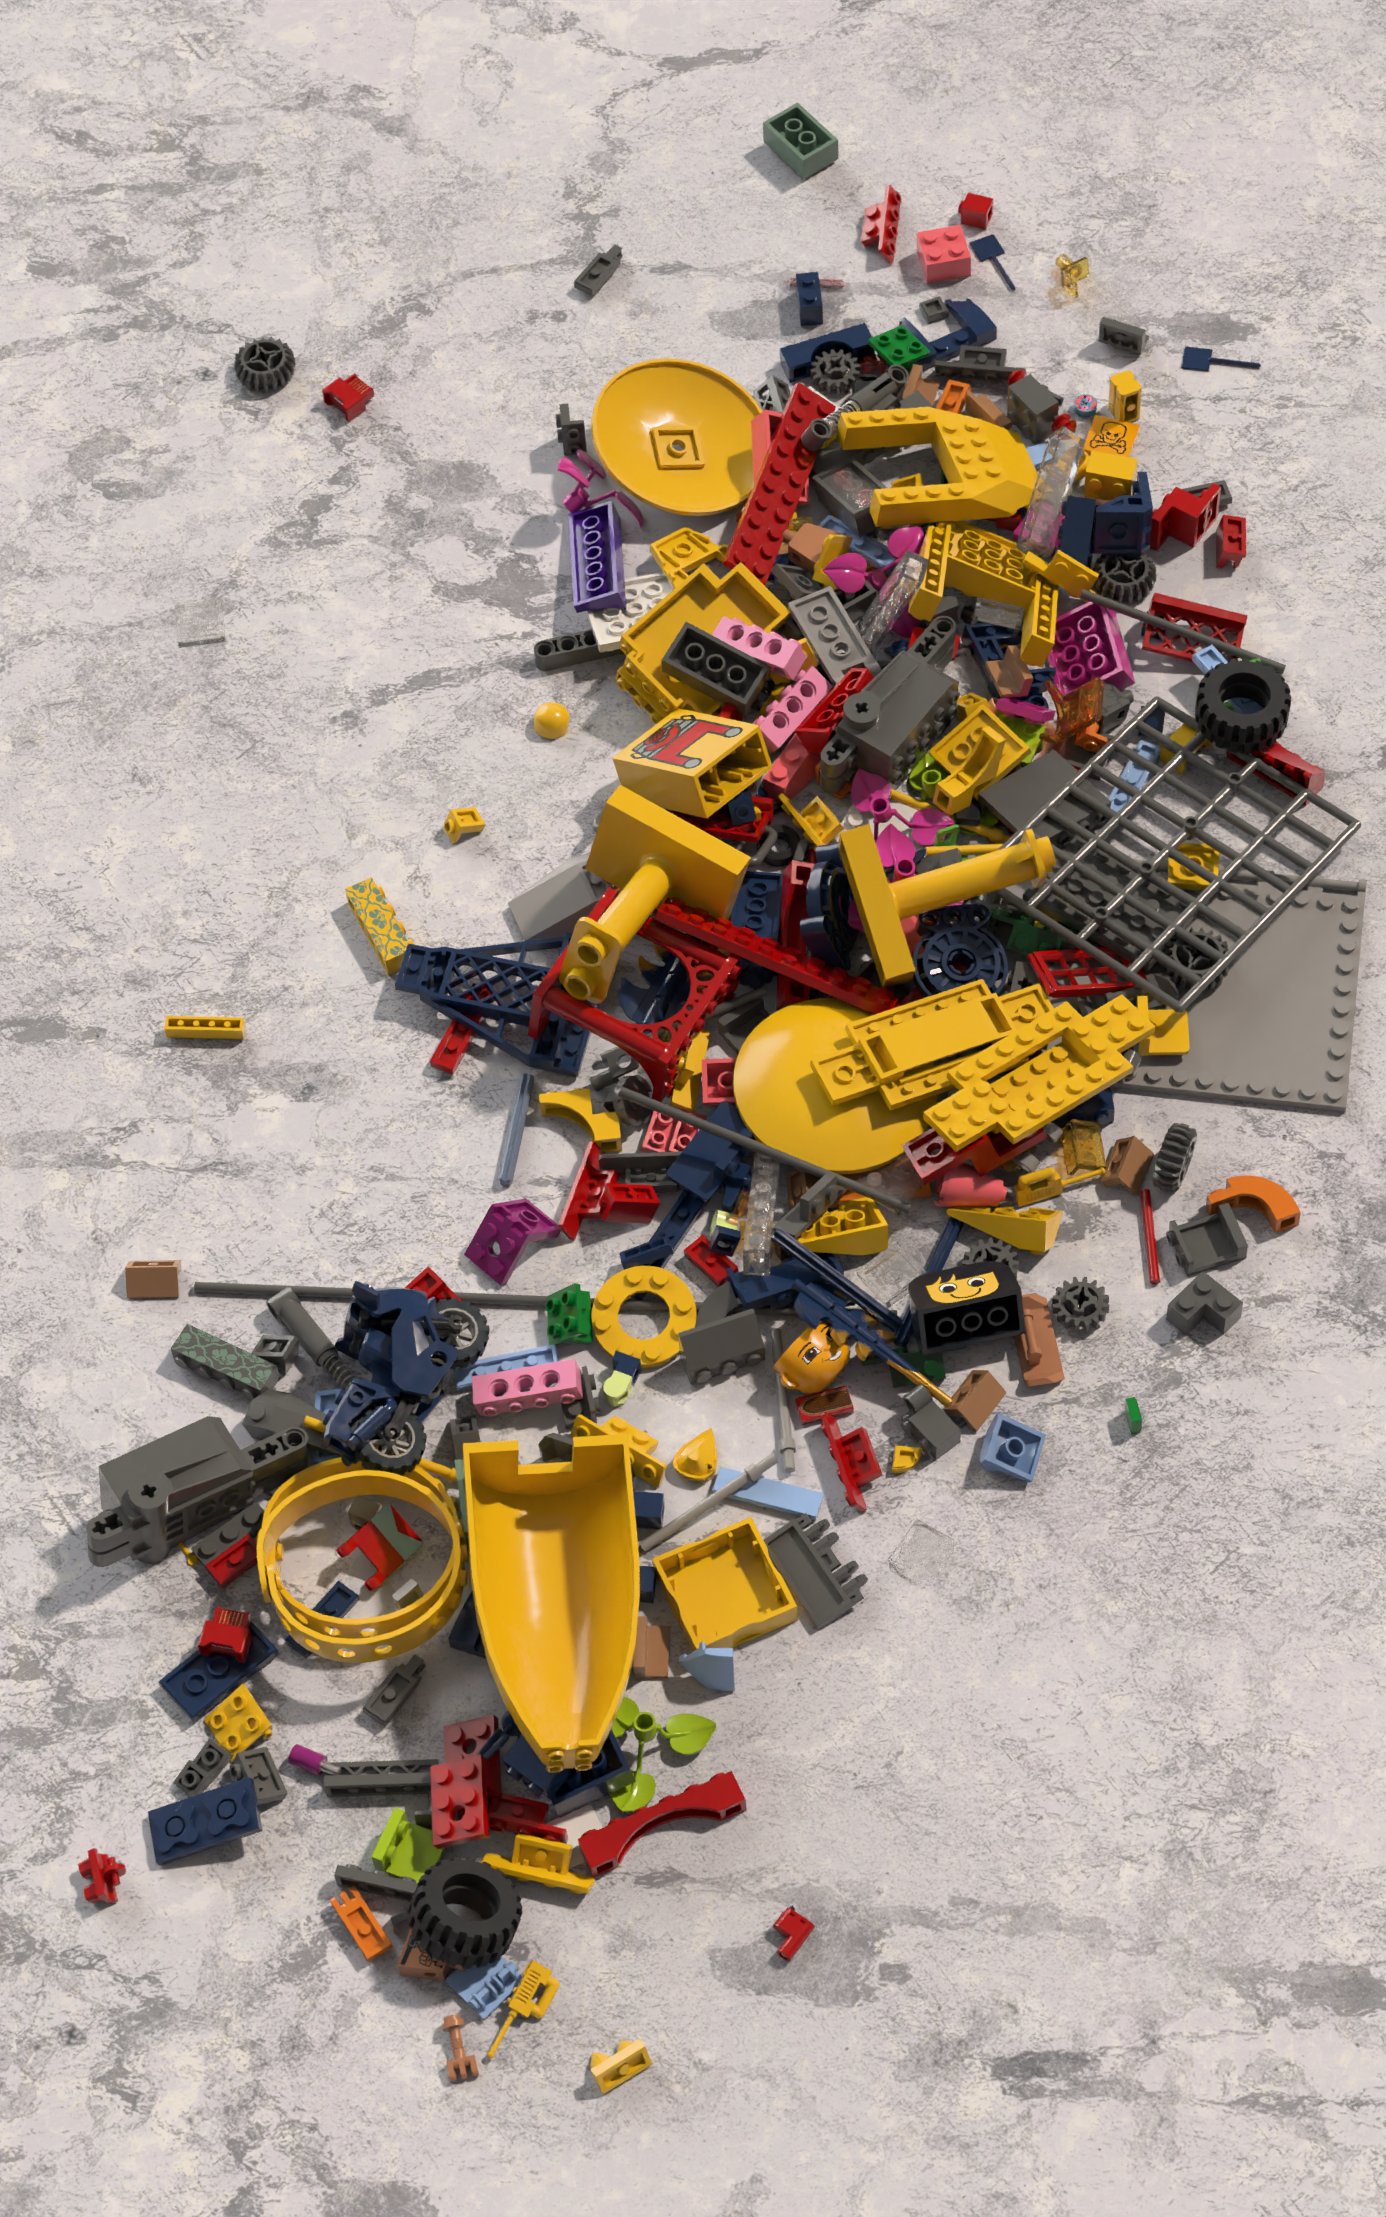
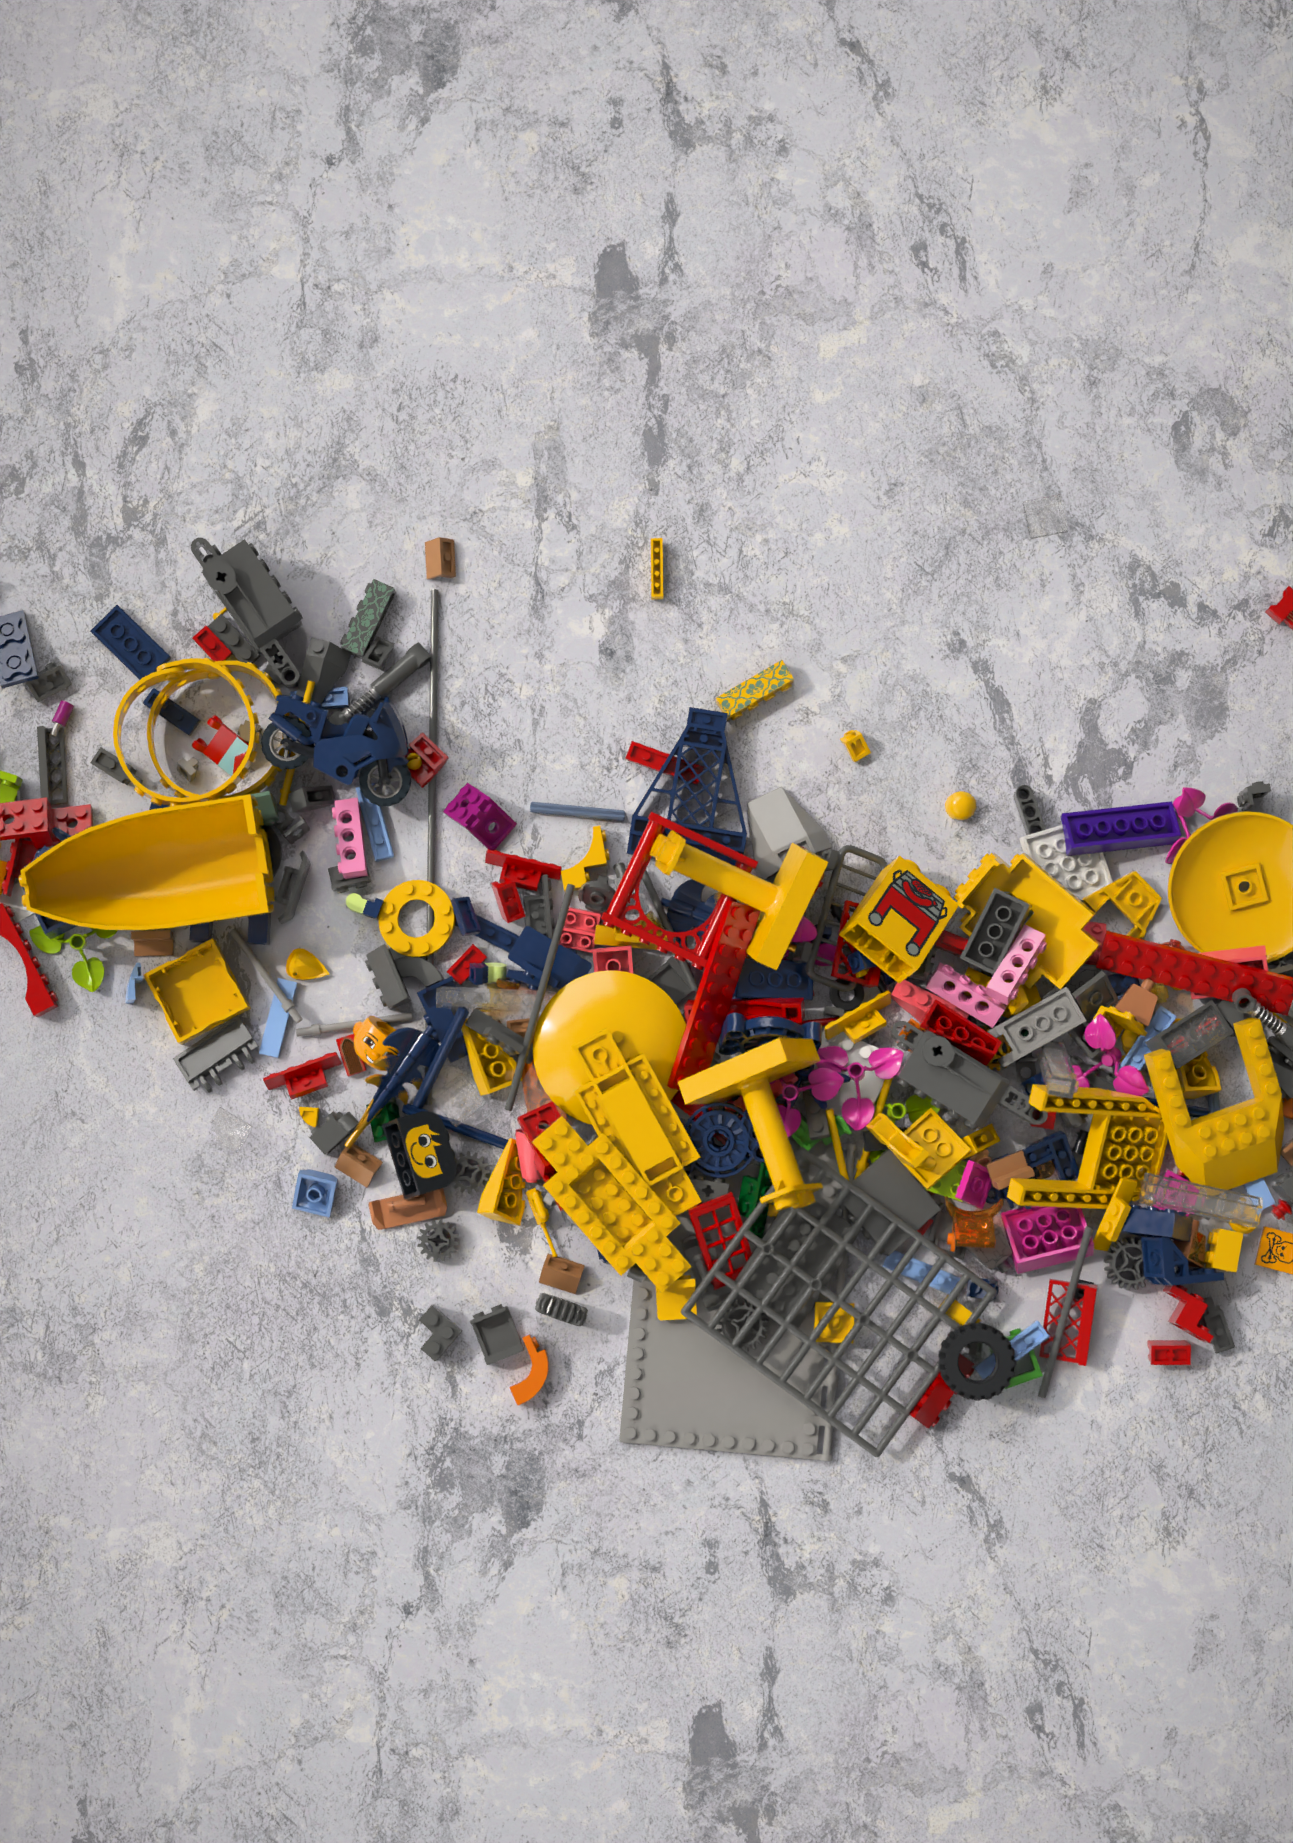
camera: 85 degrees right, 25 degrees up
(204, 1769) = (56, 643): dark grey slope -> none
(226, 1634) = (148, 647): red piece -> none
(238, 1722) = (89, 663): yellow hinge -> none
(569, 1316) = (411, 864): green bracket -> none
(640, 1445) = (313, 911): yellow bracket -> none
(997, 614) = (1070, 1159): clear hinge -> none
(1082, 1146) = (572, 1241): clear yellow bracket -> none
(1133, 1415) = (346, 1281): green tile -> none
(1149, 1233) = (501, 1291): red bar -> none

